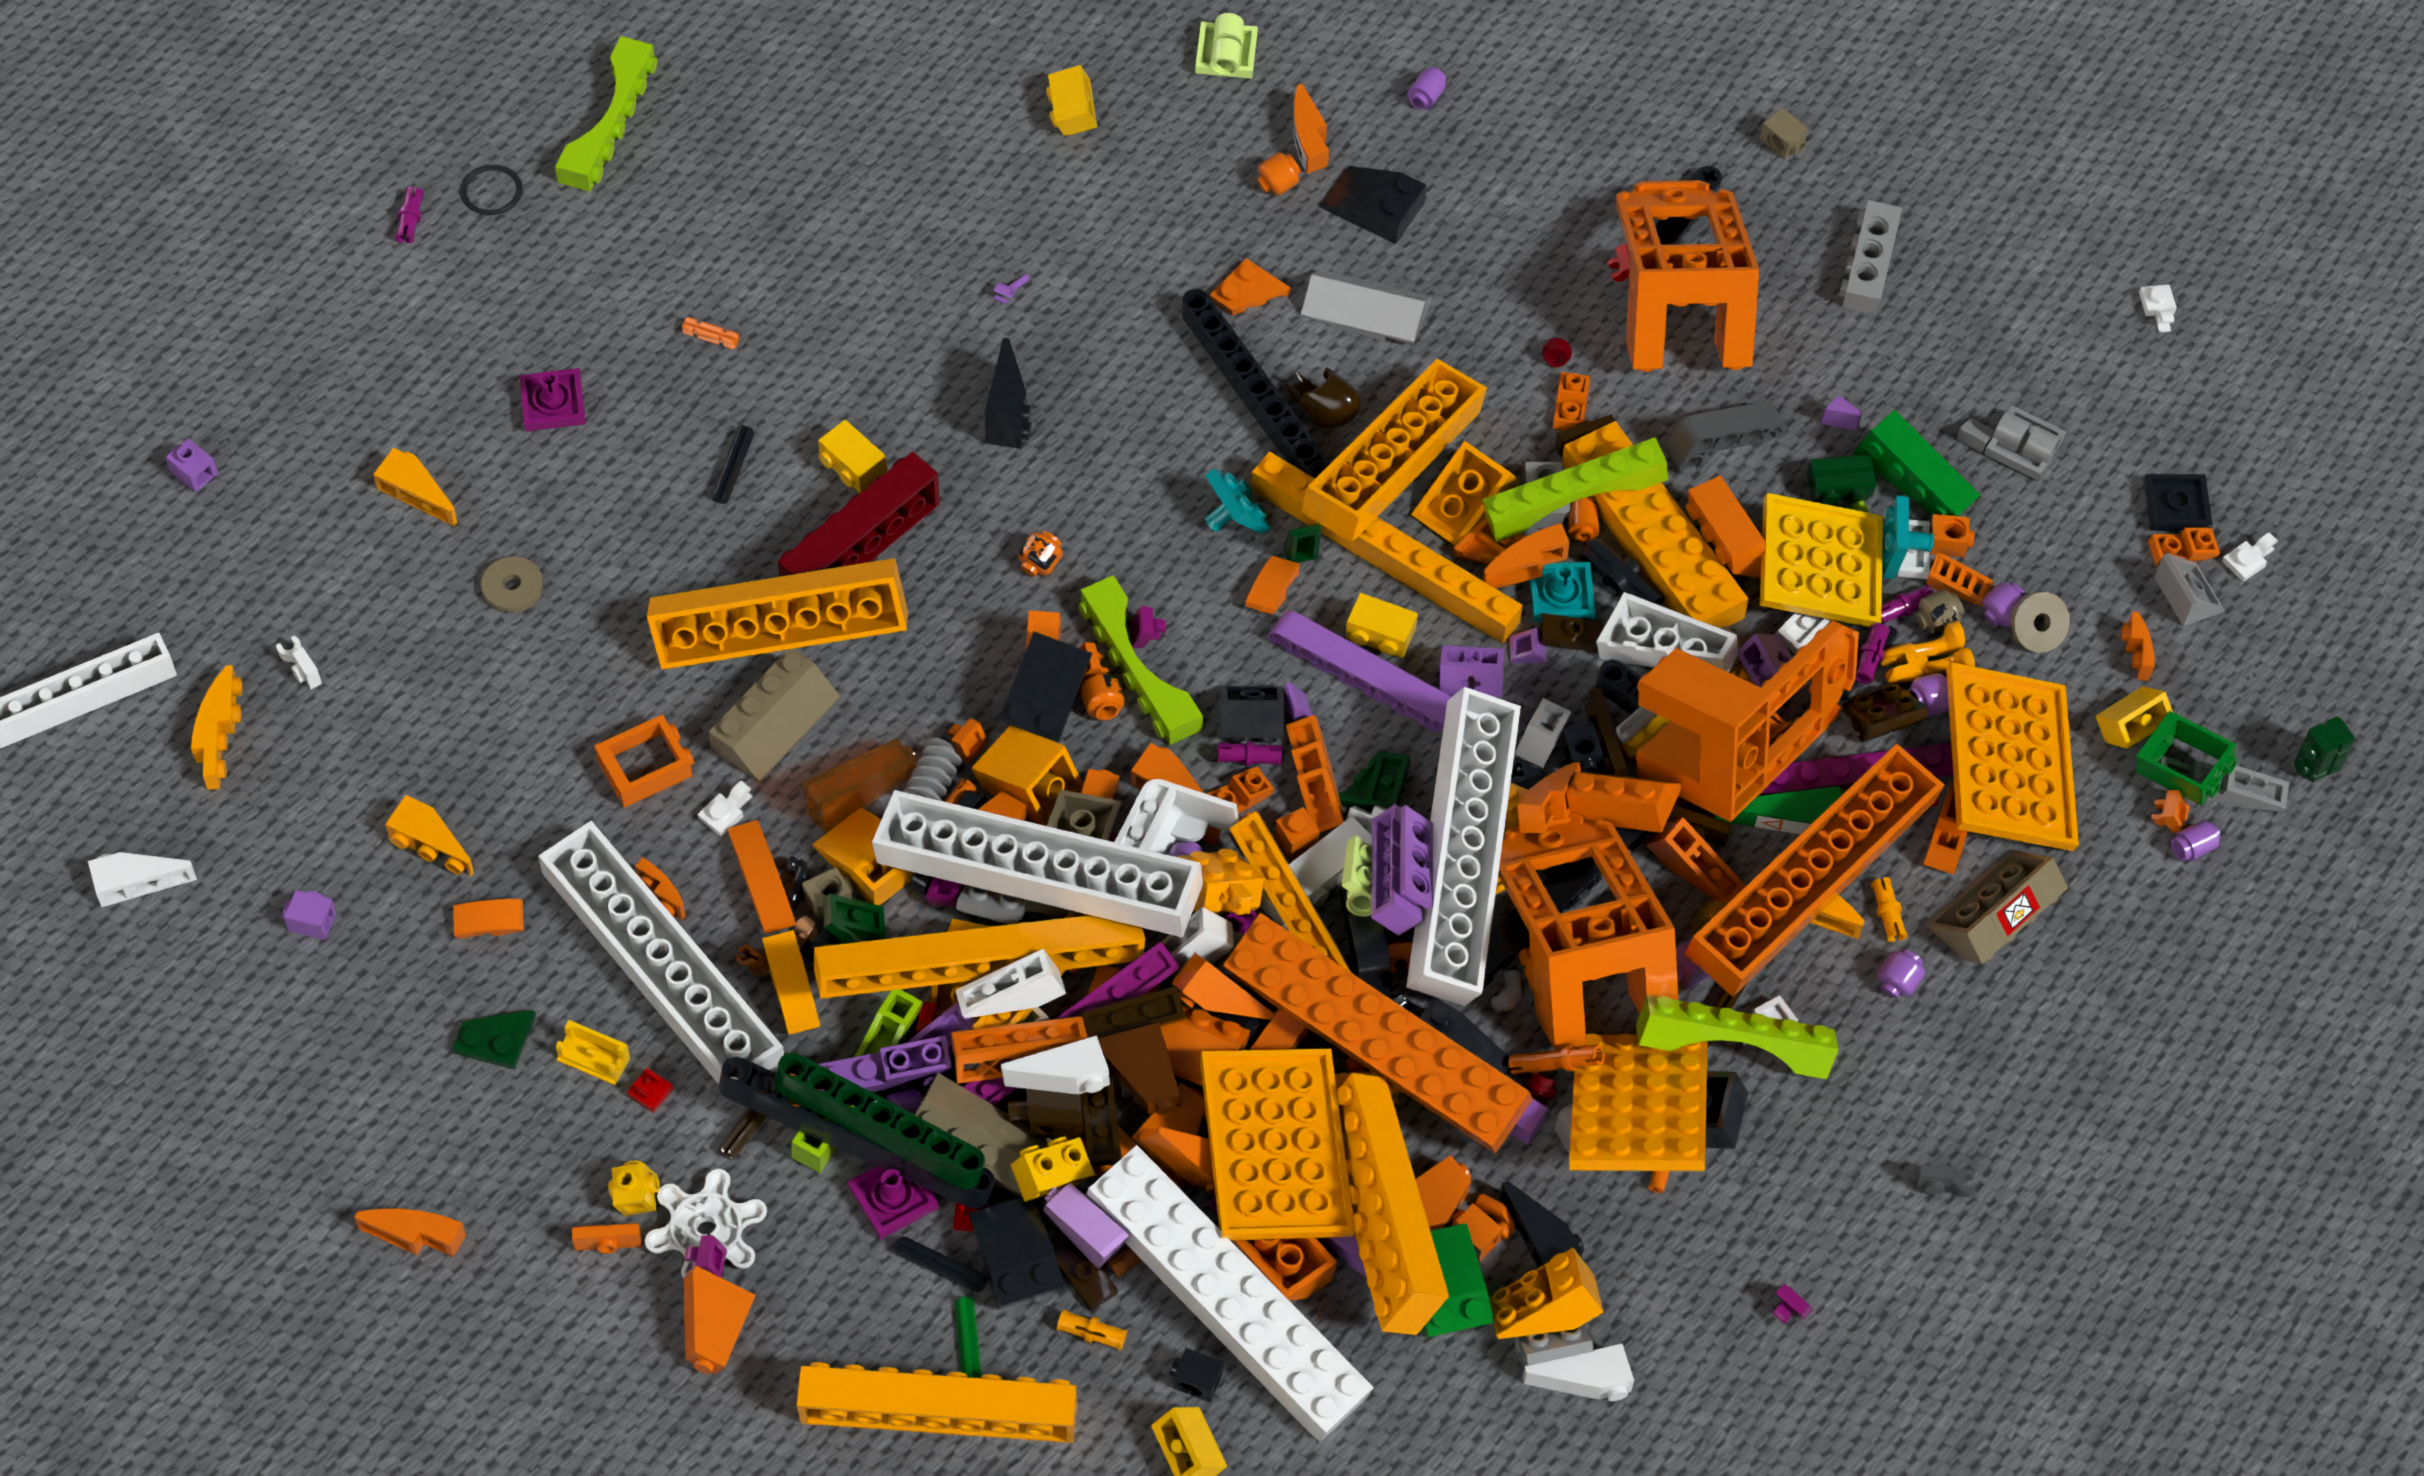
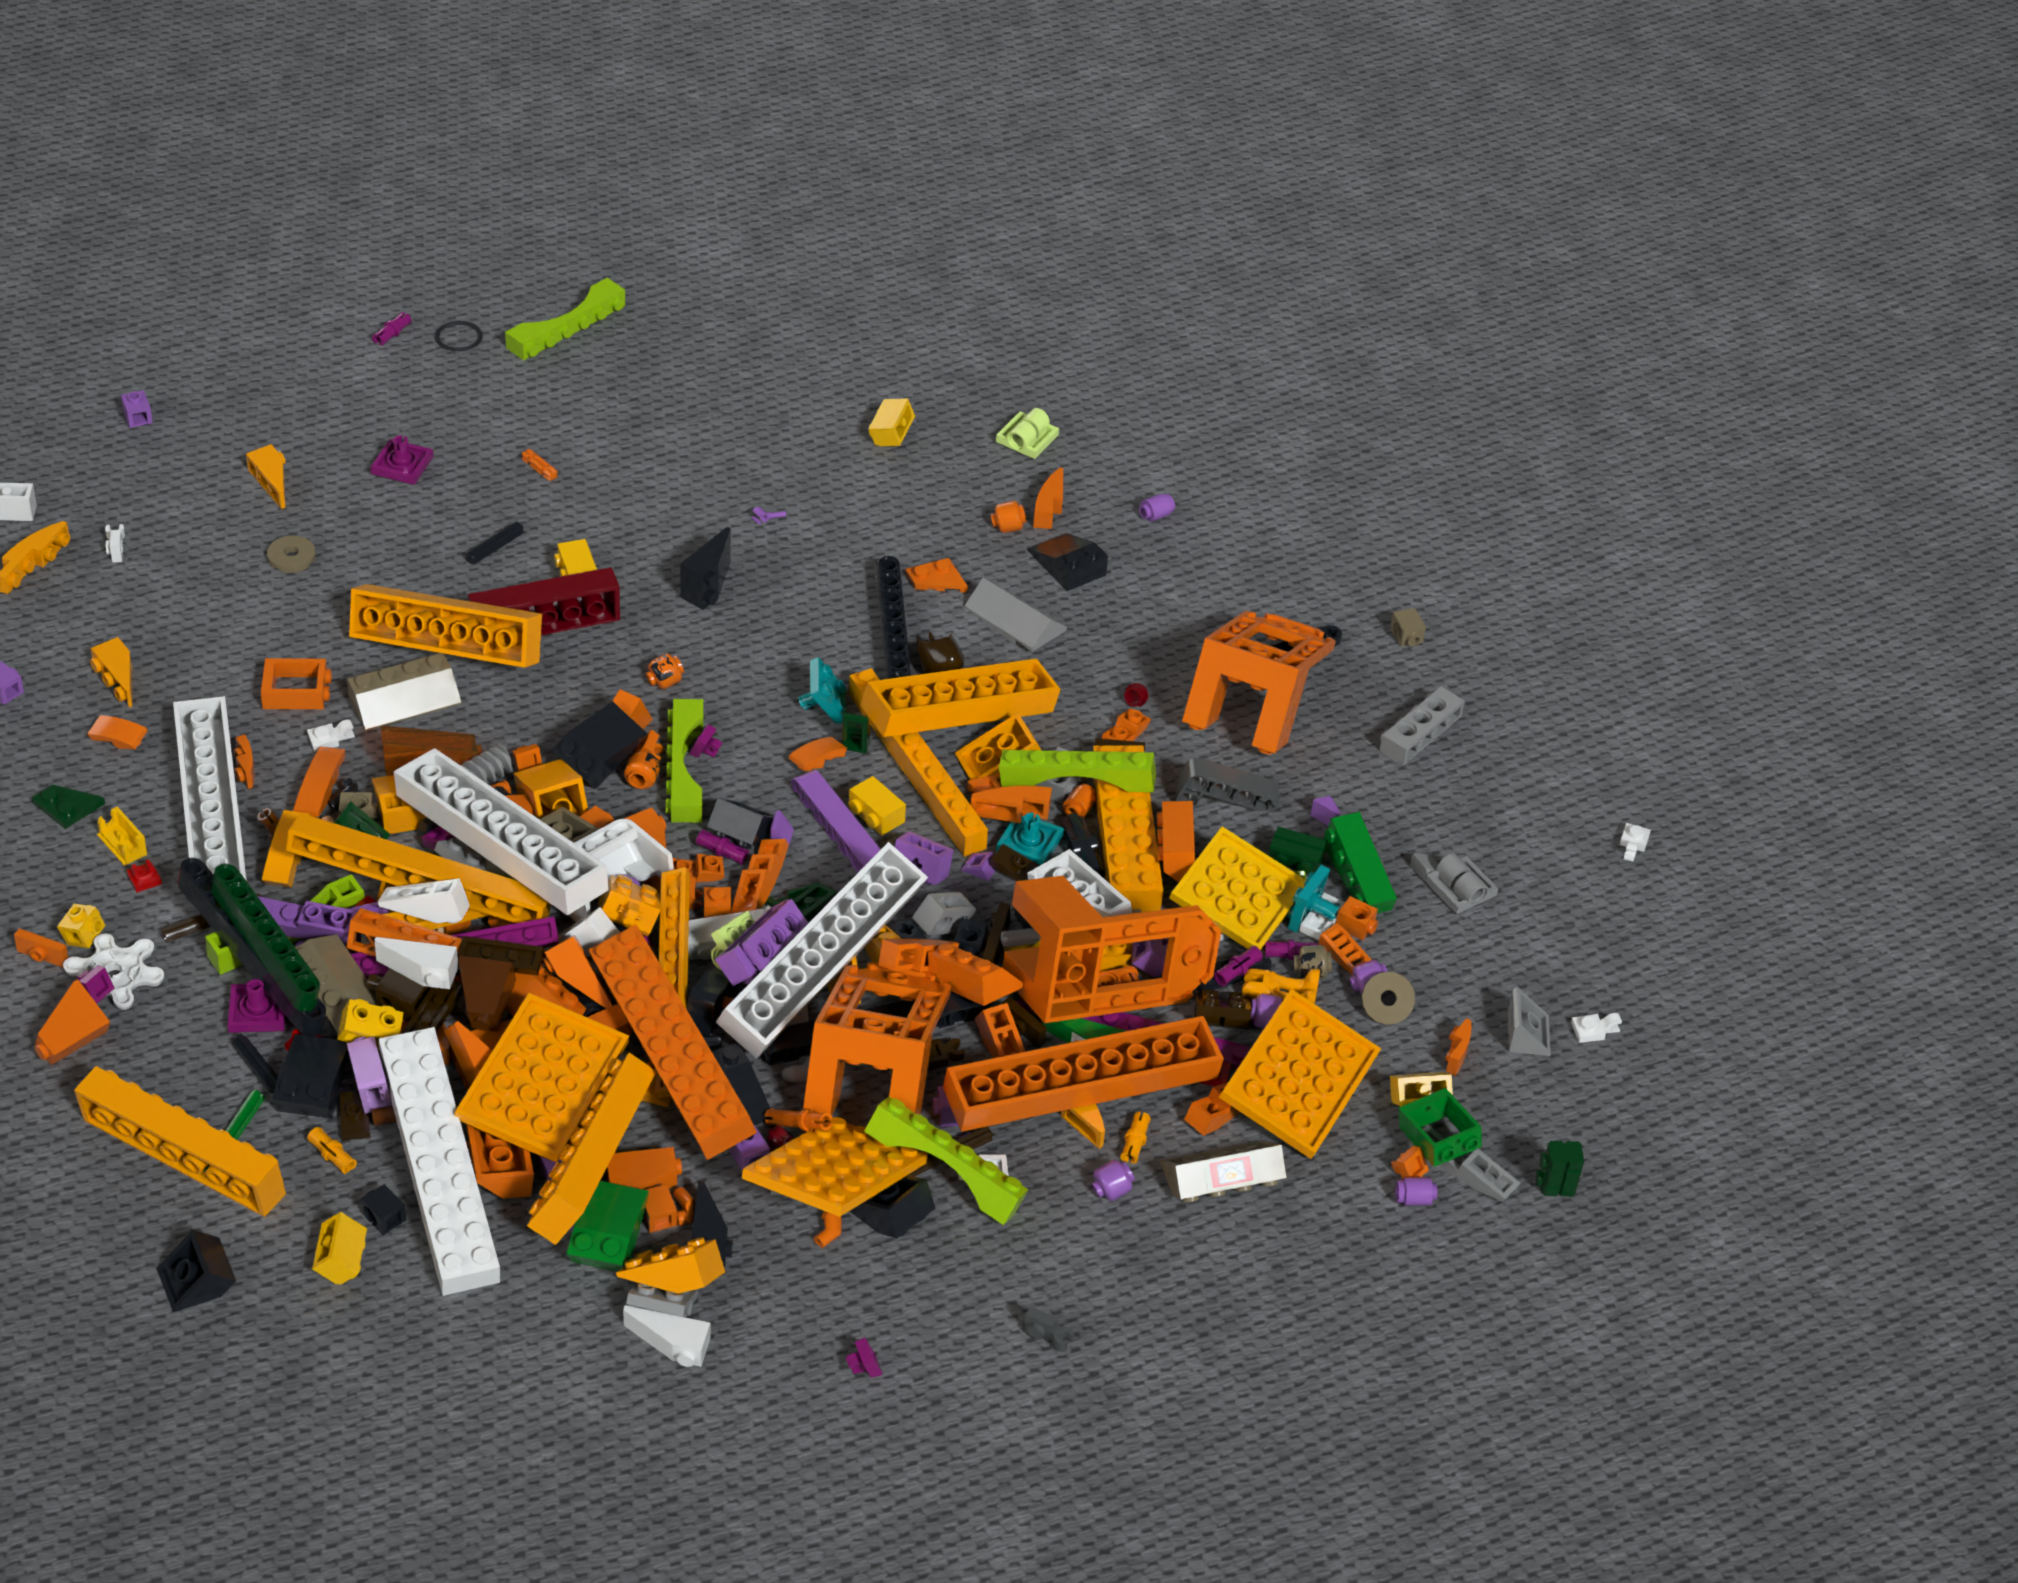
camera: 25 degrees right, 15 degrees down
(2177, 501) = (1559, 969): black plate -> none
(2190, 544) = (1553, 1001): orange slope -> none

